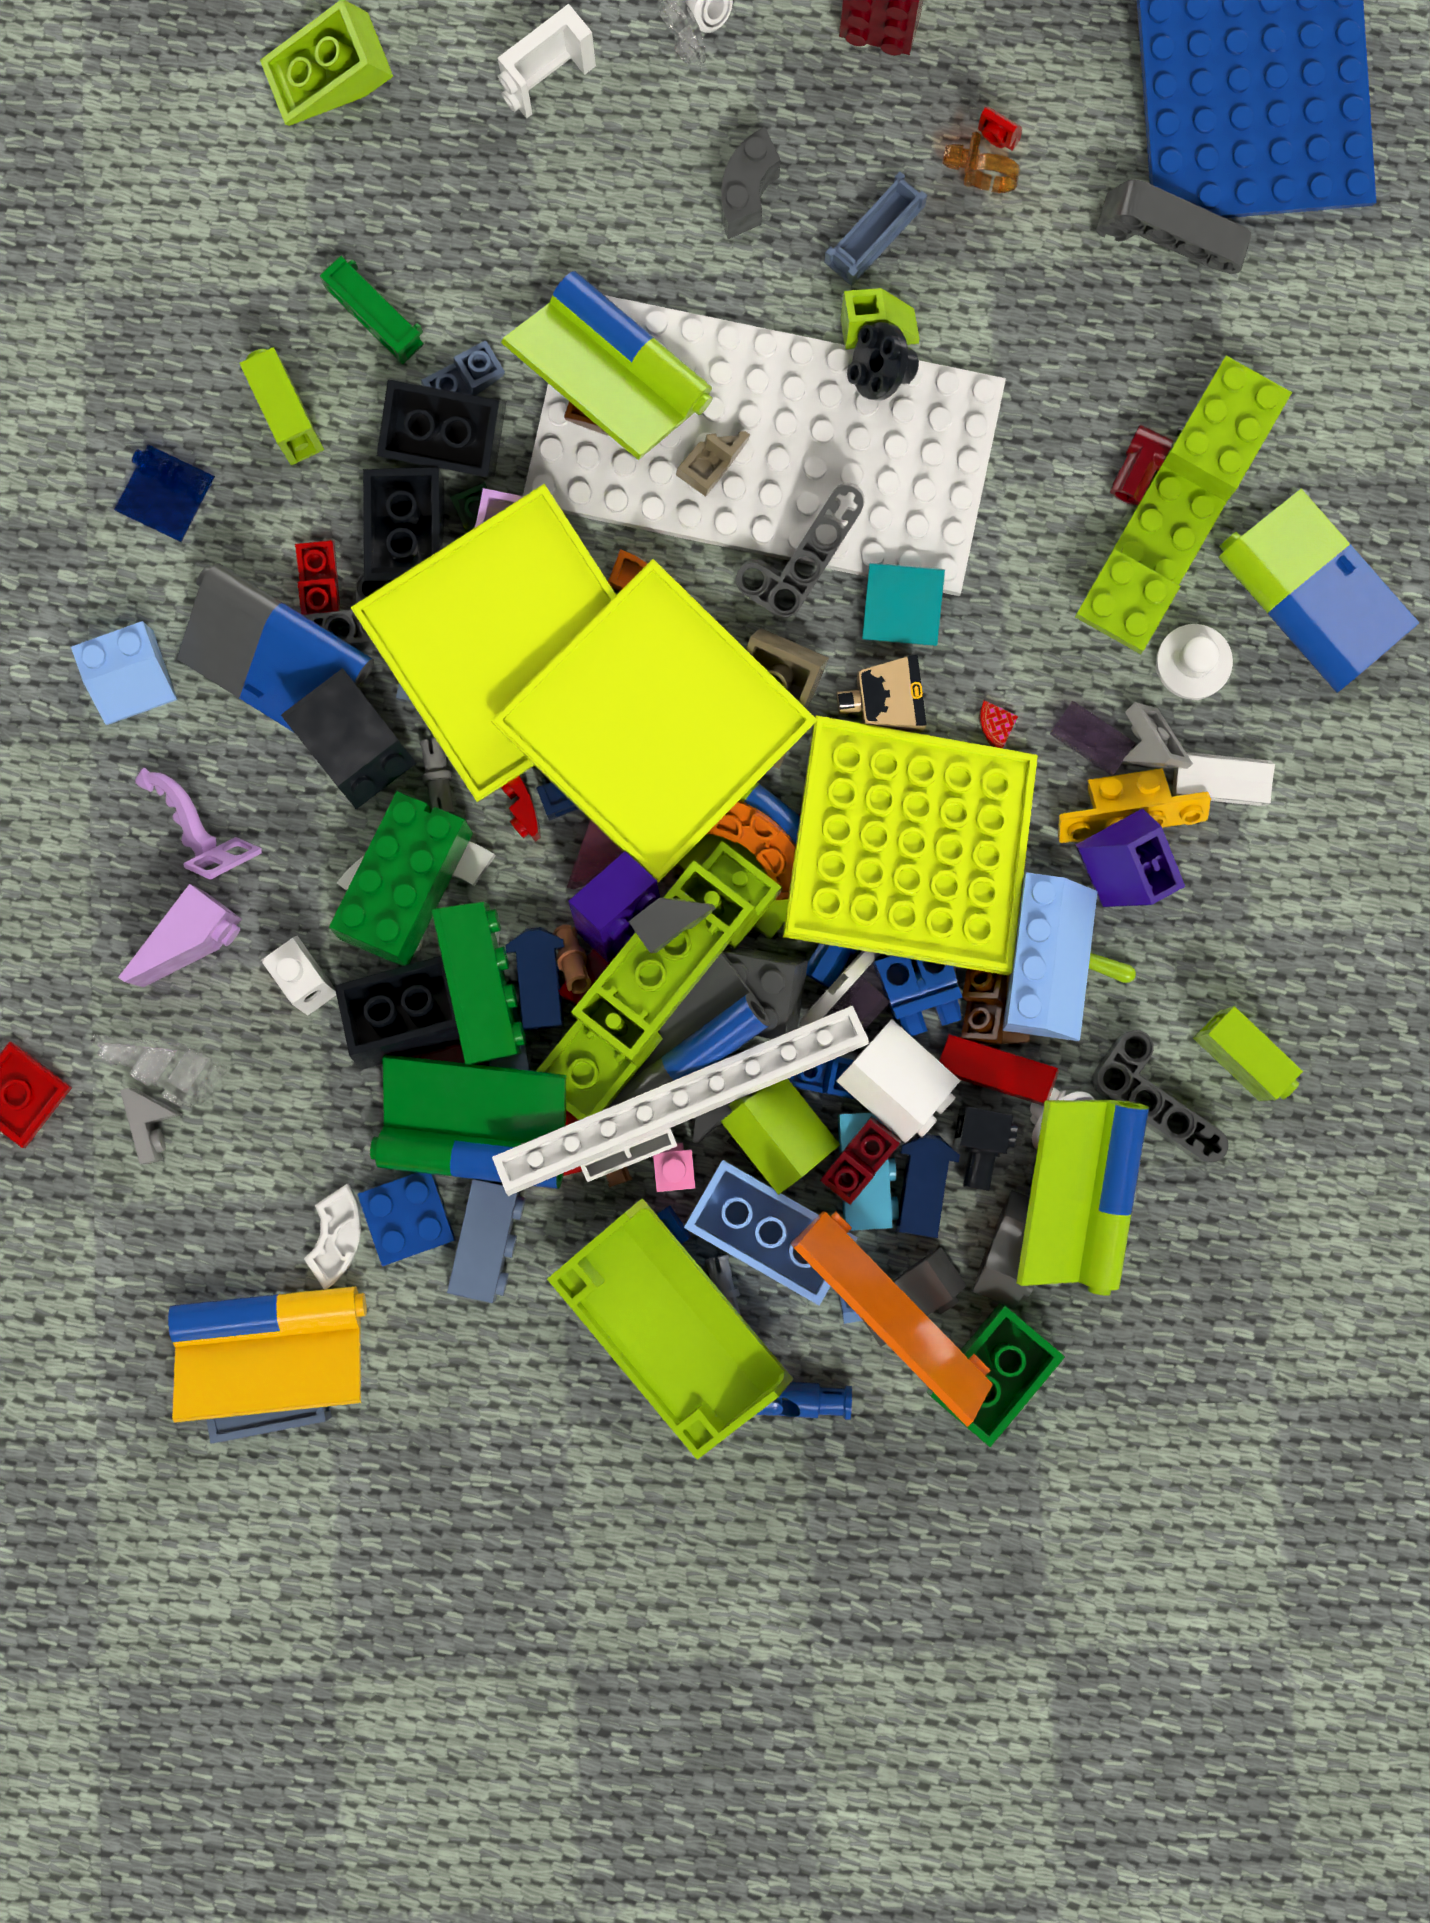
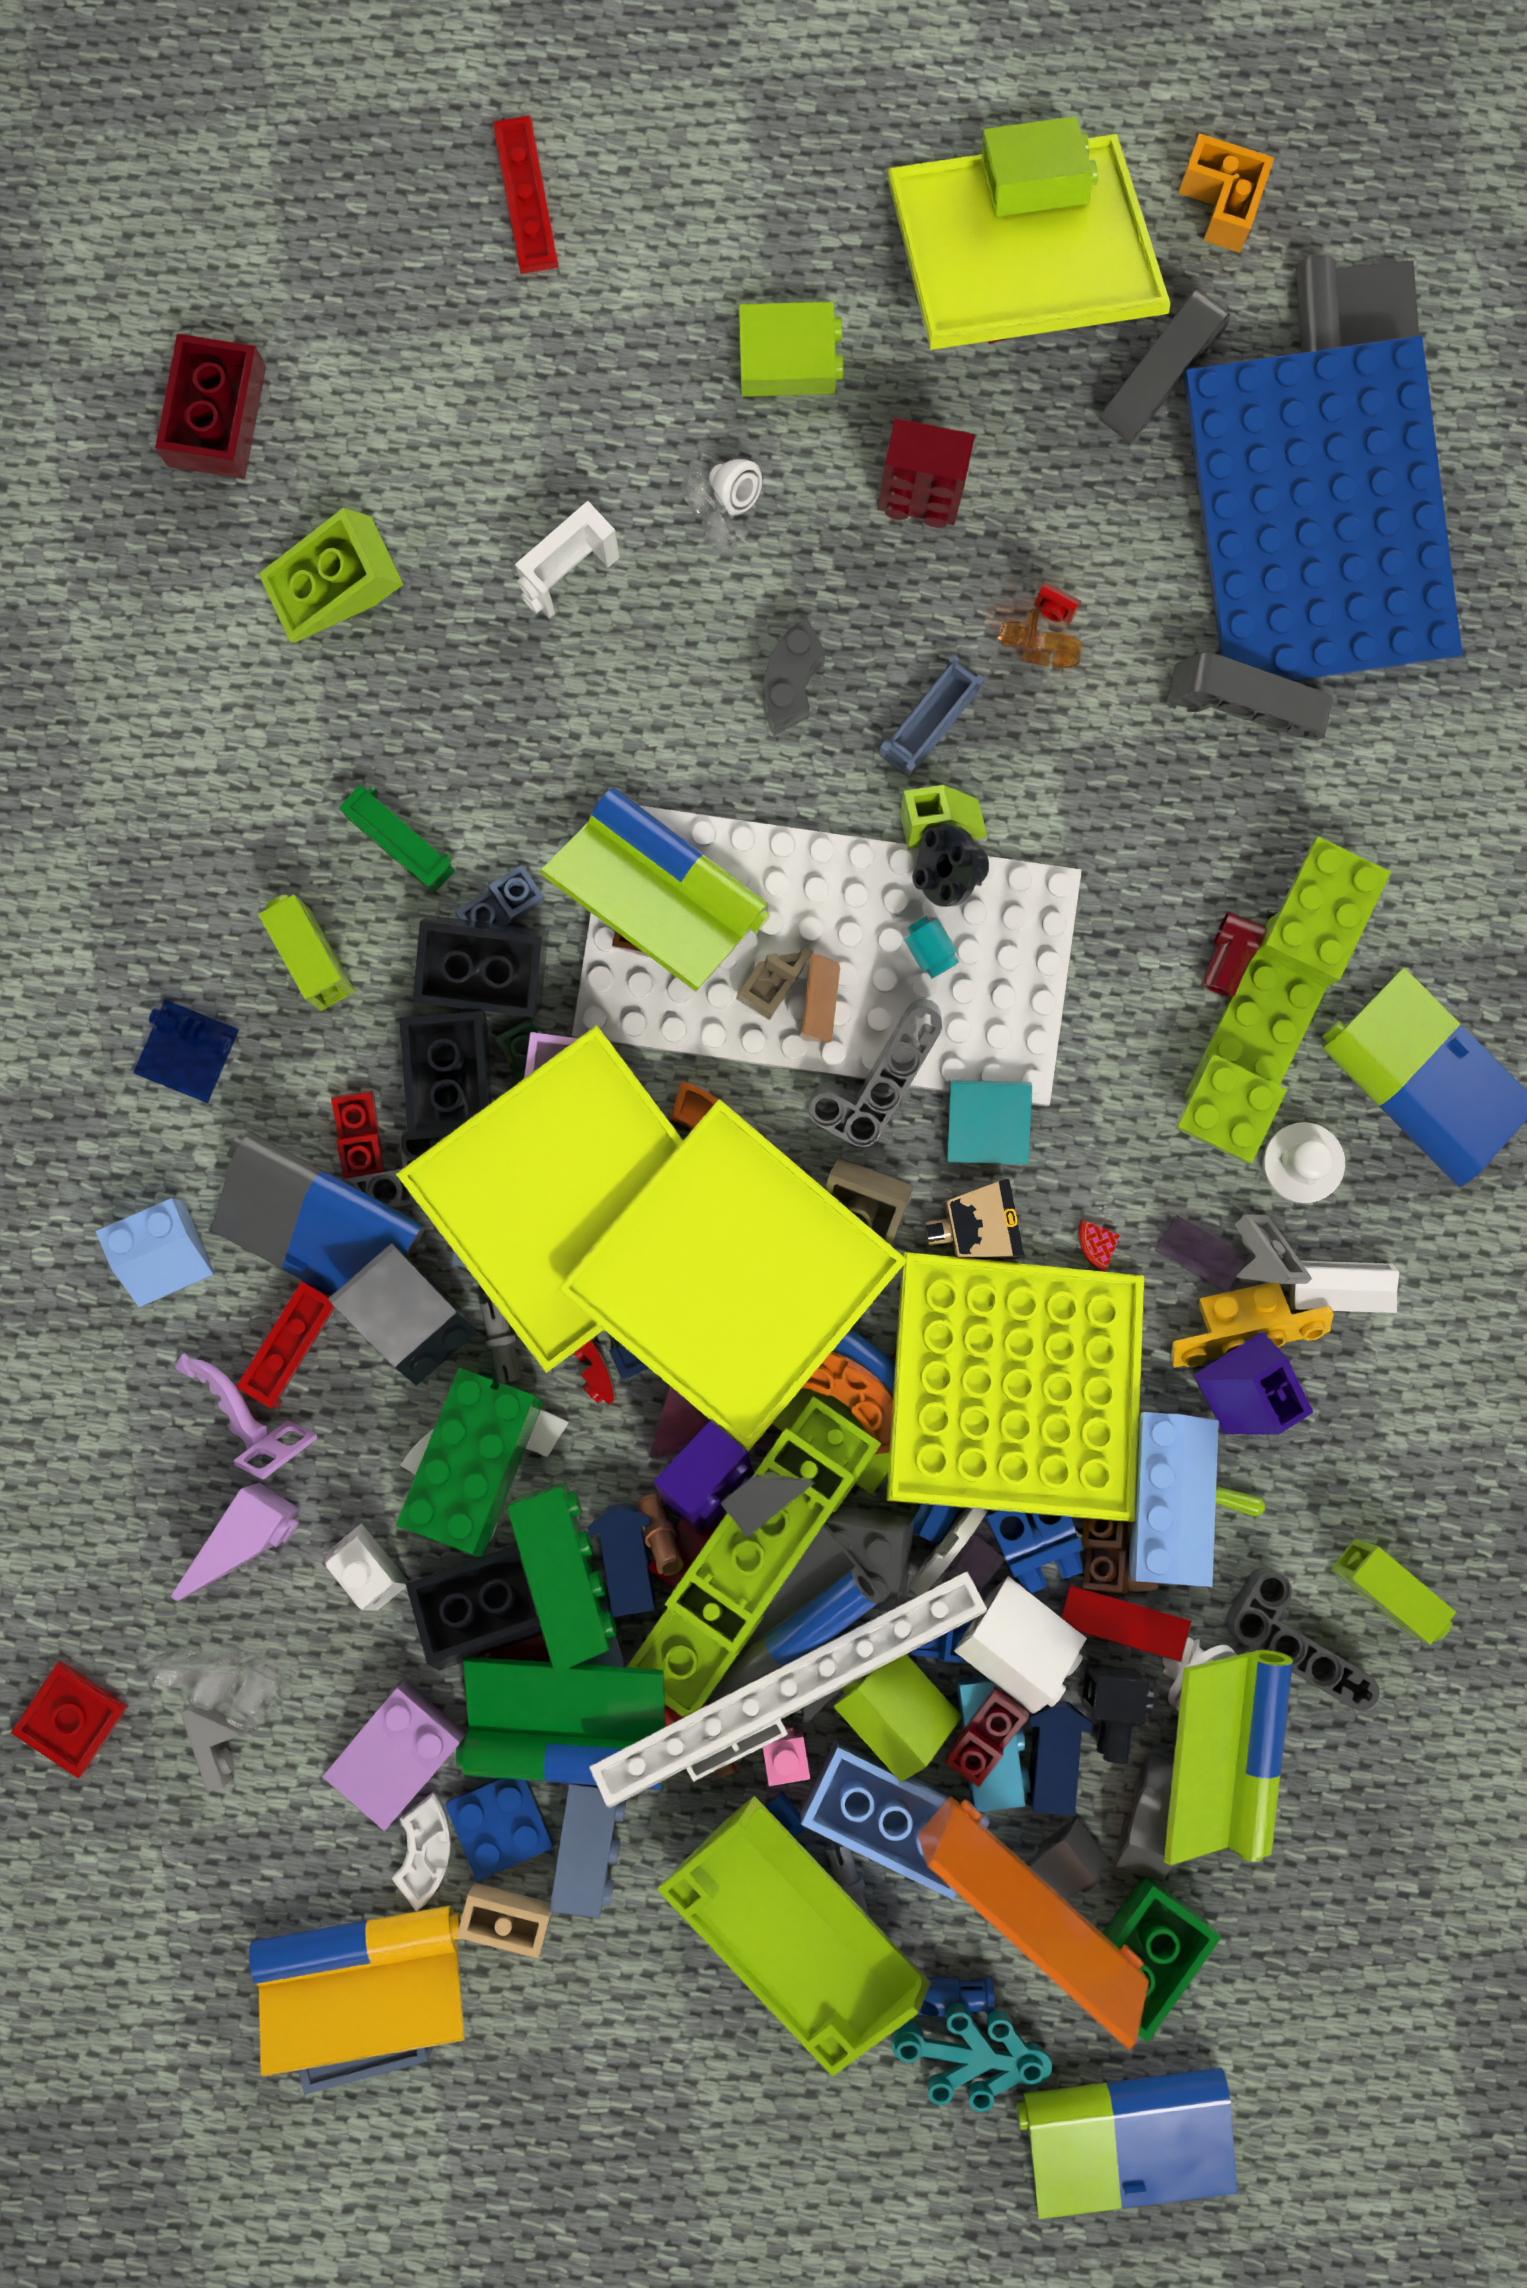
camera: 10 degrees left, 0 degrees up
(241, 764) = (286, 1345): none -> red container
(312, 1146) = (394, 1755): none -> lavender slope
(405, 1300) = (505, 1920): none -> tan brick
(753, 479) = (820, 999): none -> medium nougat slope
(832, 1456) = (975, 2057): none -> teal plant
(859, 437) = (931, 946): none -> teal brick
(969, 1546) = (1130, 2142): none -> door

